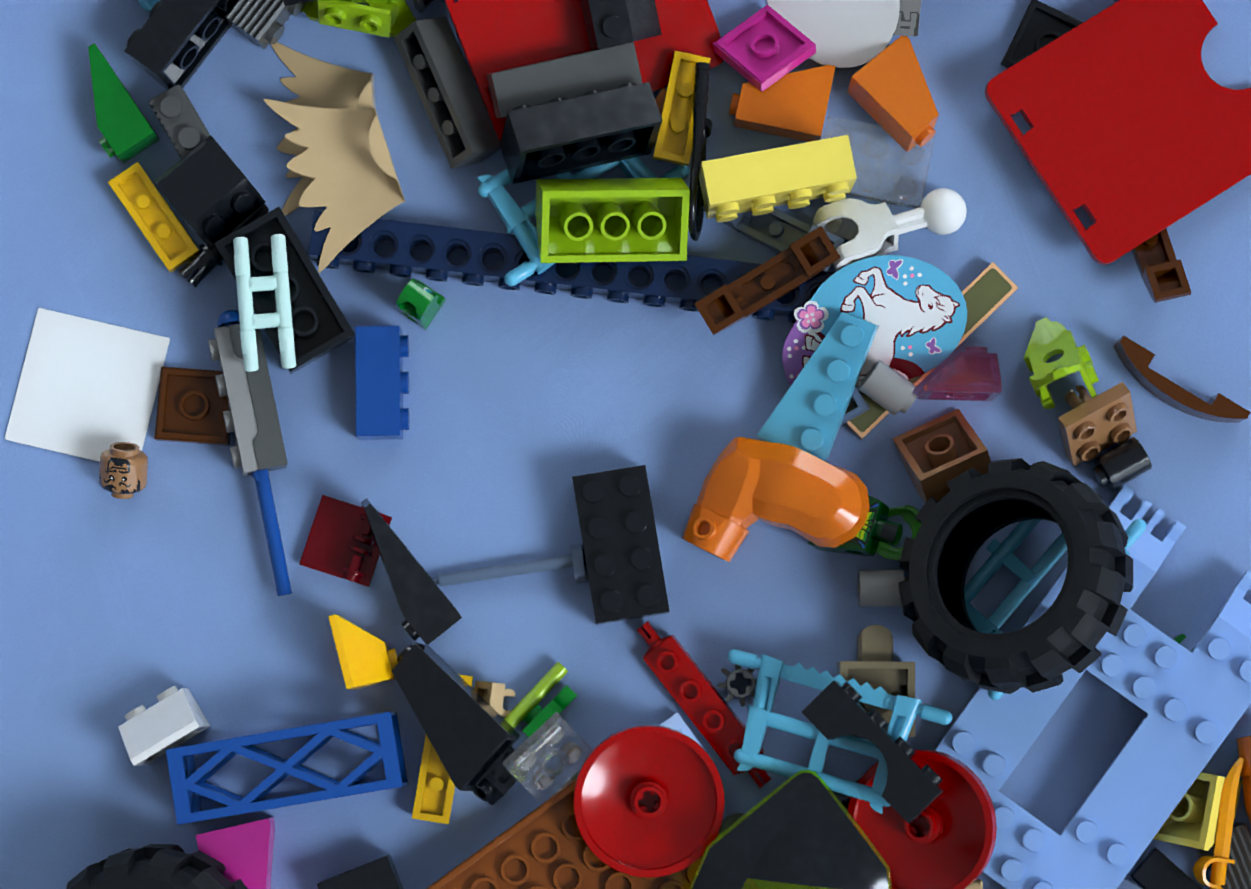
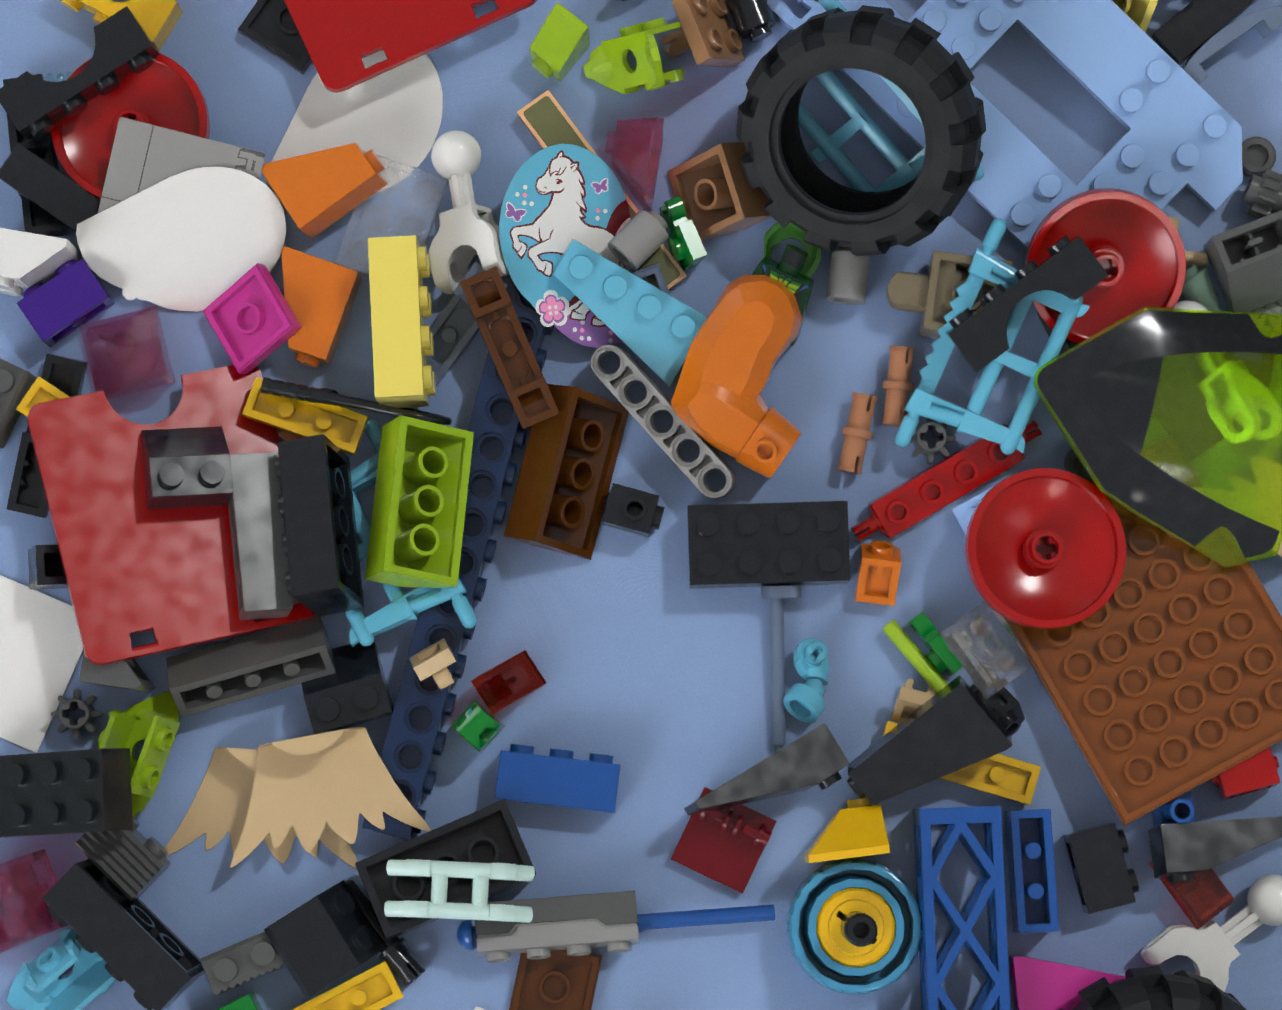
camera: 80 degrees left, 0 degrees up
(279, 669) = (854, 926): none -> dark azure wheel
(350, 826) = (1031, 871): none -> blue brick
(434, 186) = (350, 695): none -> black slope
(462, 325) = (508, 683): none -> clear red slope
(469, 253) = (434, 662): none -> tan tile
(515, 601) = (811, 663): none -> medium azure arm
(608, 651) = (878, 573): none -> orange bracket
(635, 417) = (633, 510): none -> black brick
(662, 353) = (567, 473): none -> reddish brown slope
(725, 416) = (645, 413): none -> light grey beam
(736, 615) = (857, 433): none -> nougat pin
(787, 647) = (897, 384): none -> nougat pin
(892, 432) = (684, 239): none -> green plate
(970, 142) = (390, 114): none -> white sticker
(1061, 290) = (559, 43): none -> lime slope

